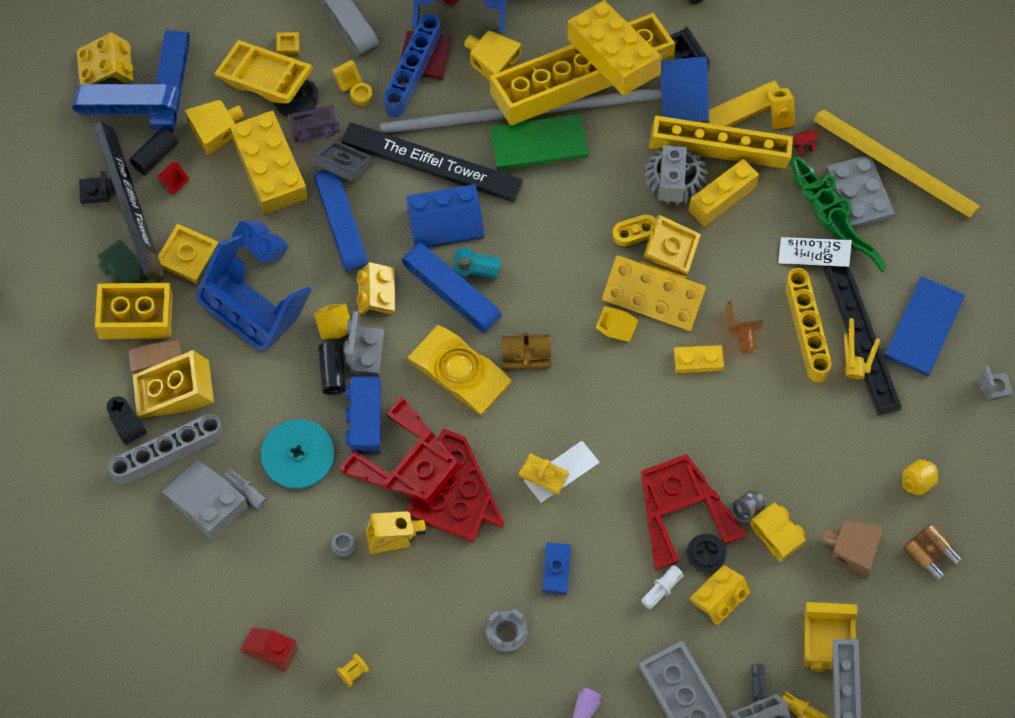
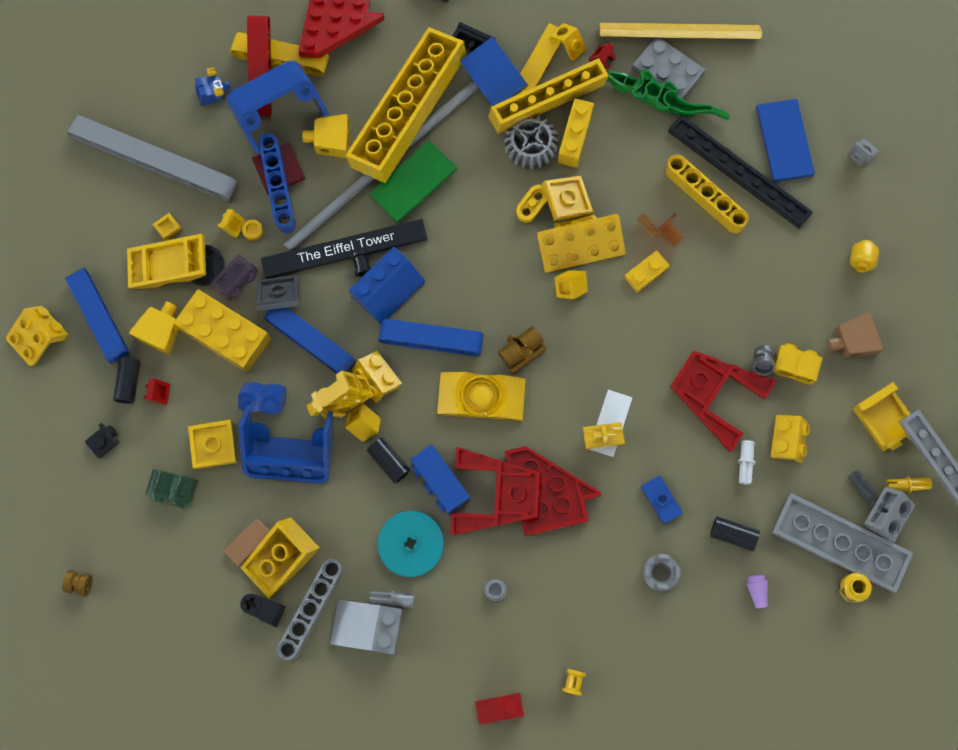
camera: 30 degrees left, 10 degrees up
(126, 99) = (76, 354): beam -> none
(129, 202) = (138, 434): black tile -> none
(134, 311) = (206, 518): yellow brick -> none
(330, 281) = (341, 396): none -> yellow hips
(363, 348) = (403, 428): light grey bracket -> none
(392, 531) = (522, 561): yellow torso -> none
(437, 181) = (360, 262): none -> black bush
(479, 264) = (437, 307): teal piece -> none
(601, 641) = (735, 533): none -> black pin
(614, 47) = (424, 73): yellow brick -> none
(672, 173) = (534, 143): light grey brick -> none
(713, 545) = (758, 404): black gear -> none
(815, 251) = (670, 135): white sticker -> none
(855, 365) = (761, 203): yellow plant -> none
(929, 547) = (905, 304): clear orange piece -> none

